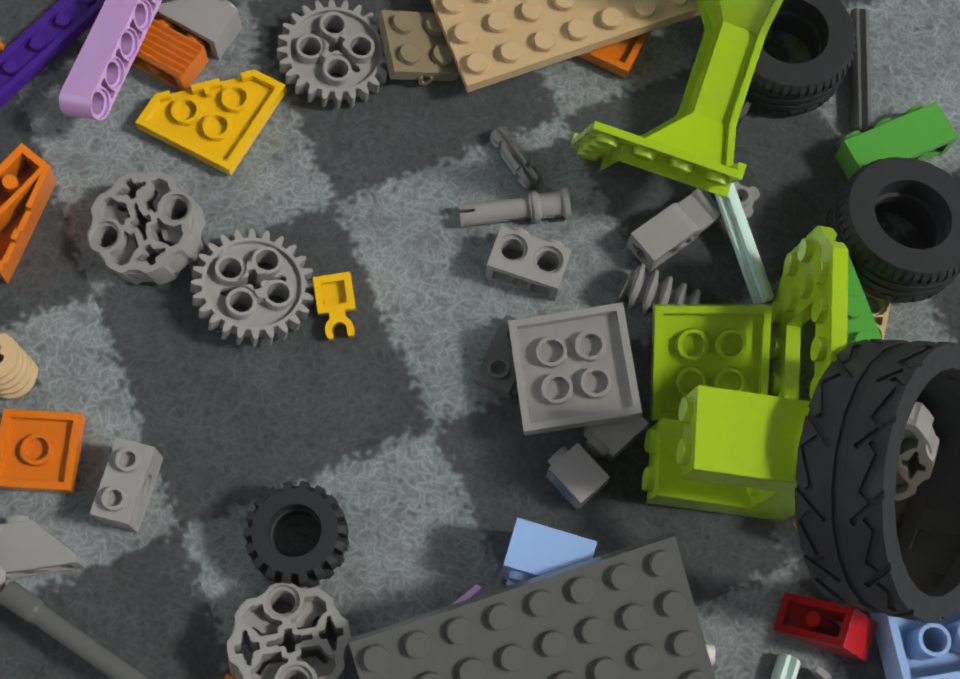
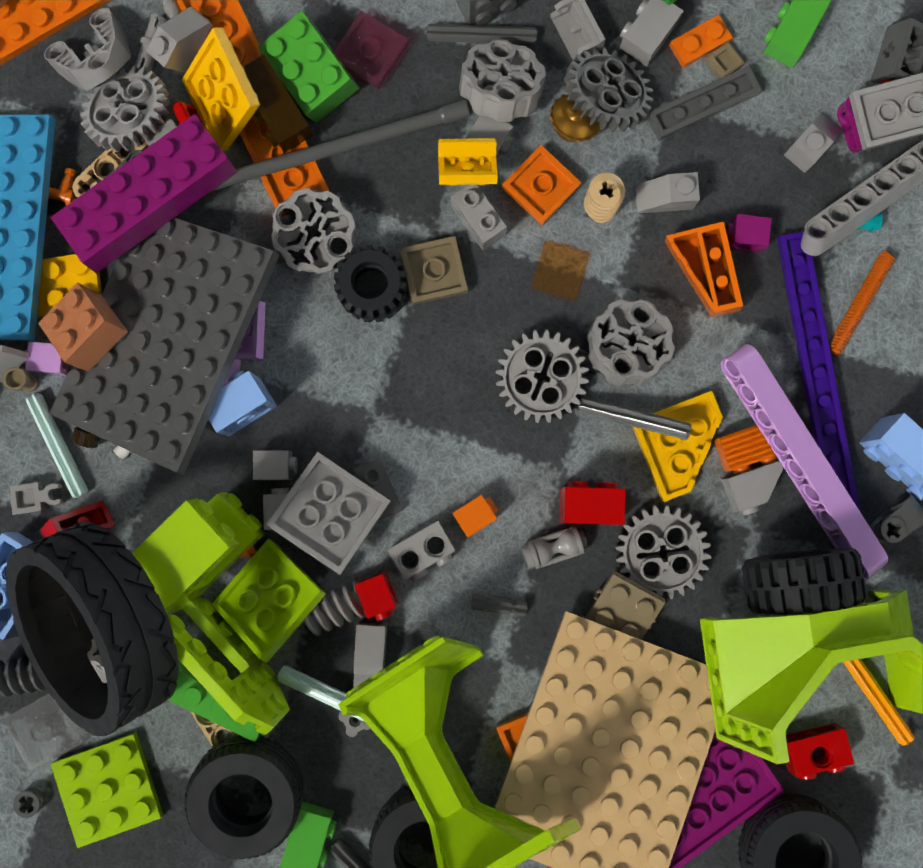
camera: 140 degrees right, 15 degrees up
(73, 532) = (467, 161): none -> yellow bracket
(122, 362) = (560, 271): none -> clear orange piece
(223, 166) = (635, 418): none -> dark grey axle
(225, 485) = (434, 270): none -> dark tan plate
(334, 298) = (495, 419): yellow plate -> none
(345, 138) = (592, 505): none -> red brick
(431, 156) = (539, 552): none -> light grey piece
(449, 240) = (476, 515): none -> orange brick
(532, 207) = (456, 586): light grey pin -> none
(608, 261) = (377, 596): none -> red brick

